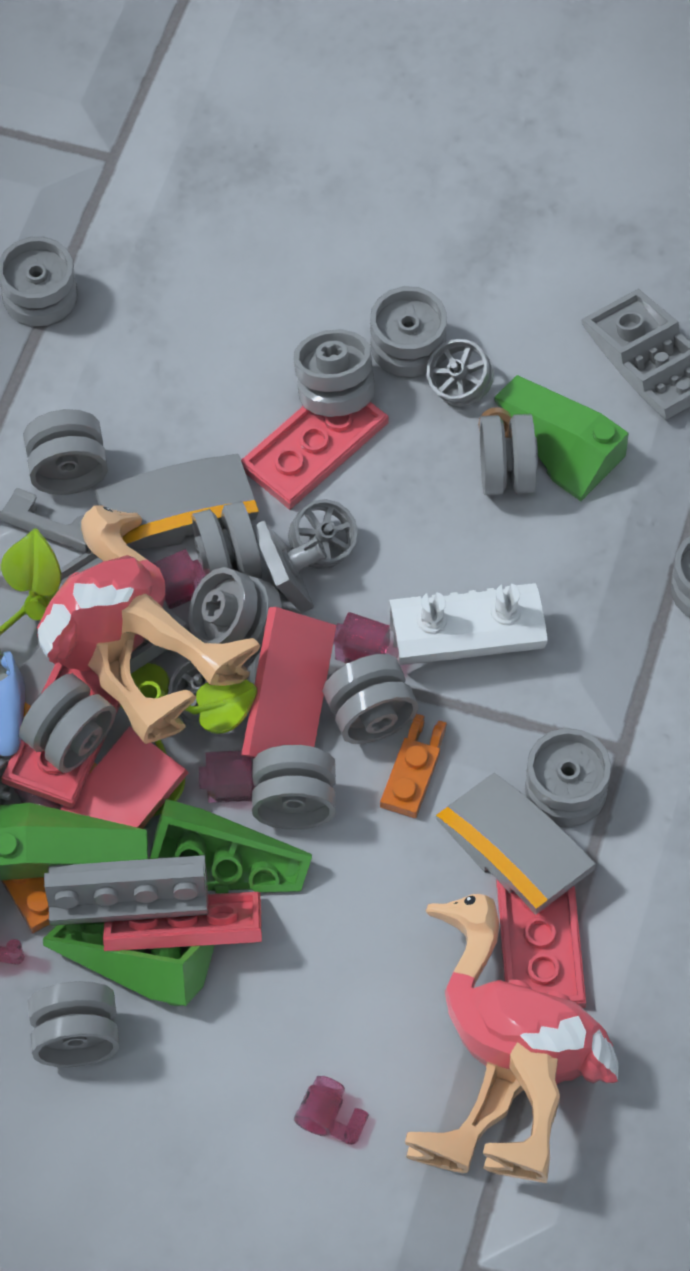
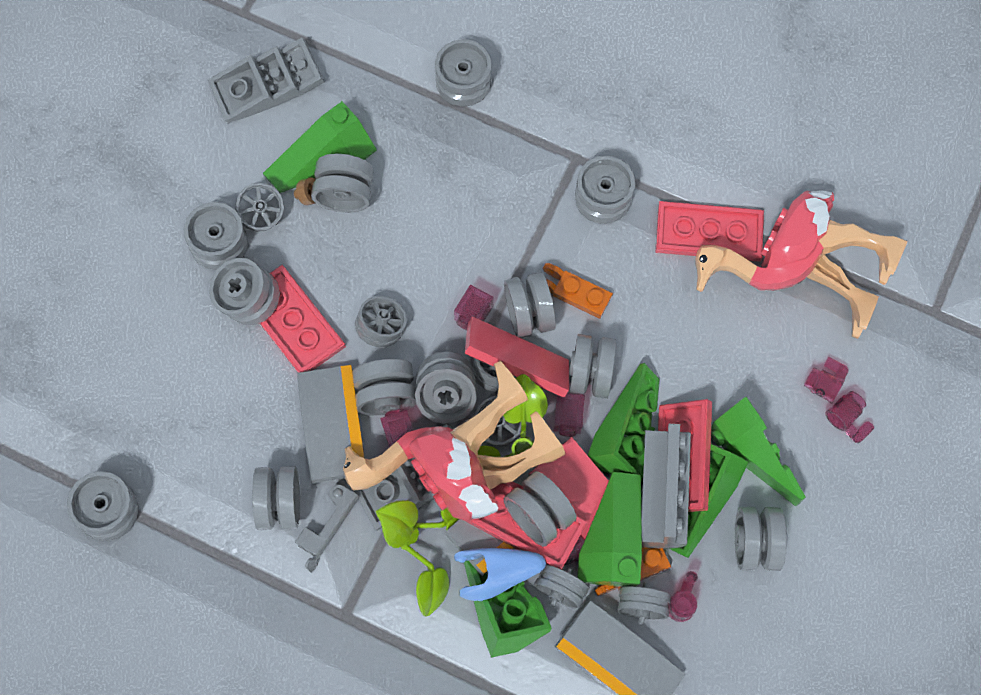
camera: 85 degrees left, 10 degrees up
(218, 1004) = (742, 434): none -> bright green wedge
(283, 1140) = (845, 412): none -> clear pink piece
(286, 564) = (407, 344): light grey tile -> none
(467, 624) = (479, 231): white piece -> none
(516, 842) = (645, 232): light grey slope -> none

